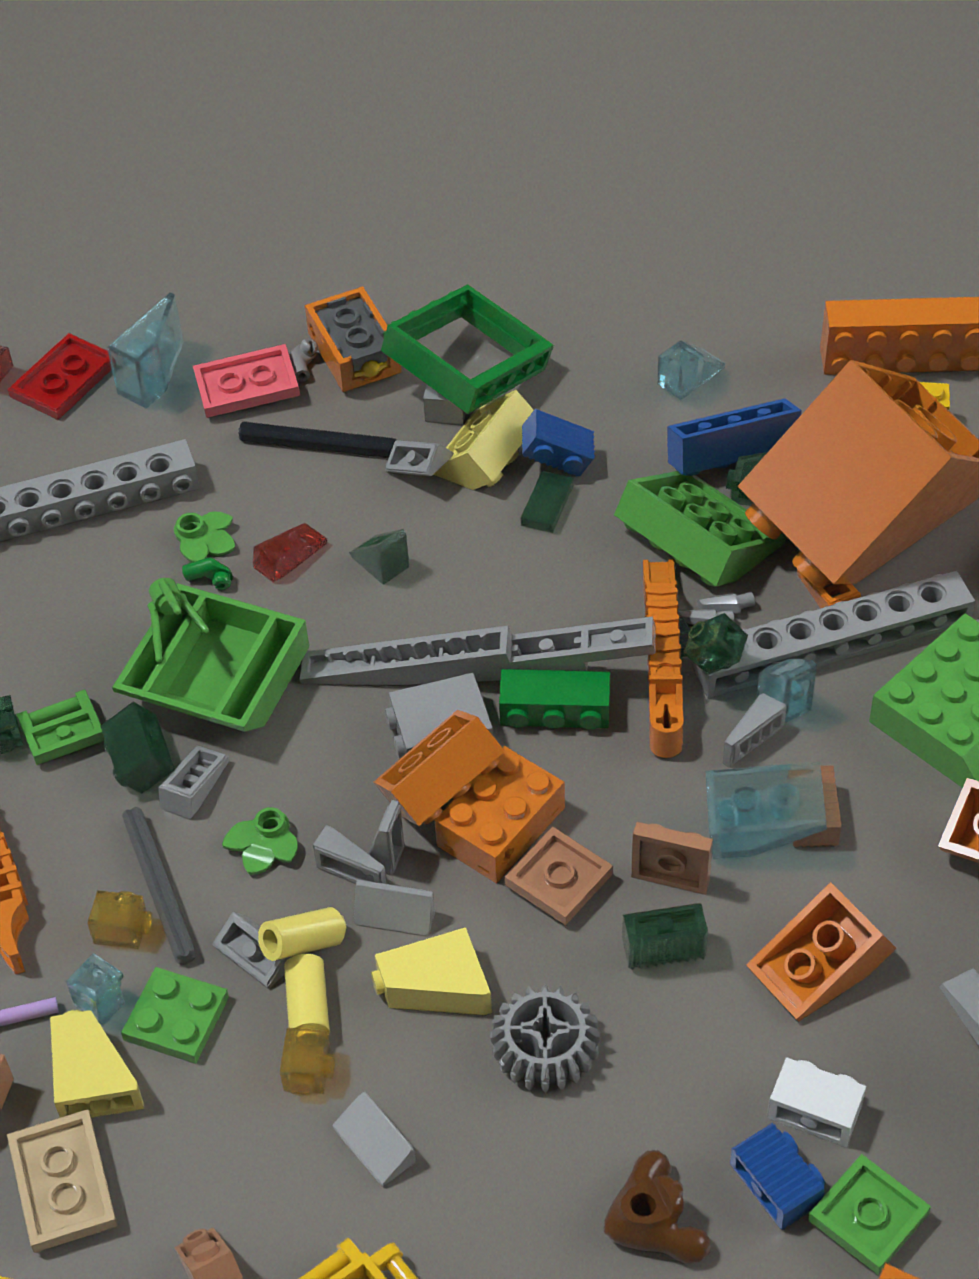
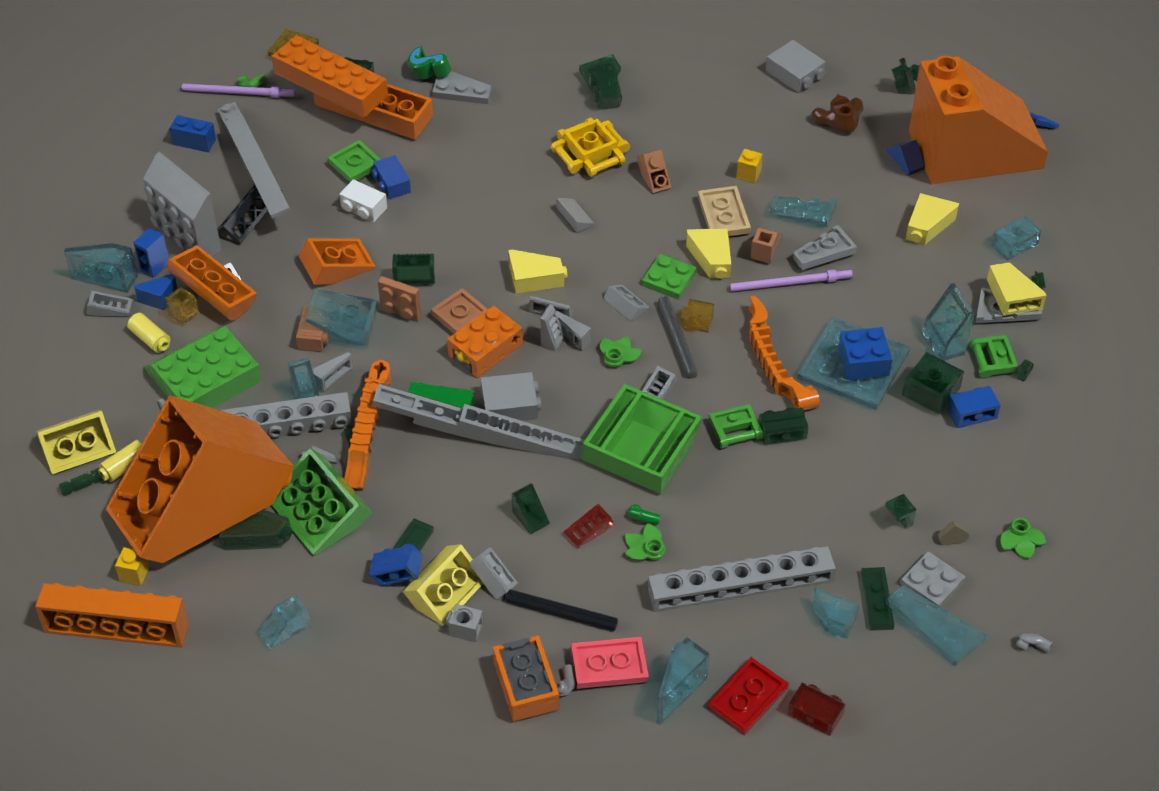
camera: 175 degrees left, 0 degrees up
(97, 988) = (705, 281): clear light blue brick -> none
(137, 748) = (688, 394): clear green brick -> none
(168, 600) = (667, 456): bright green plant -> none
(301, 933) = (600, 289): light yellow brick -> none
(306, 992) = (601, 269): light yellow brick -> none
(306, 1061) = (603, 243): clear yellow brick -> none
(440, 767) = (515, 348): orange brick -> none
(515, 1036) = (484, 240): light grey gear -> none
(528, 348) = (421, 618): green window -> none
(648, 1213) = (454, 167): reddish brown head -> none
(693, 616) = (333, 447): light grey bar -> none
(715, 643) = (340, 389): clear green brick -> none
(724, 437) = (275, 551): blue brick -> none

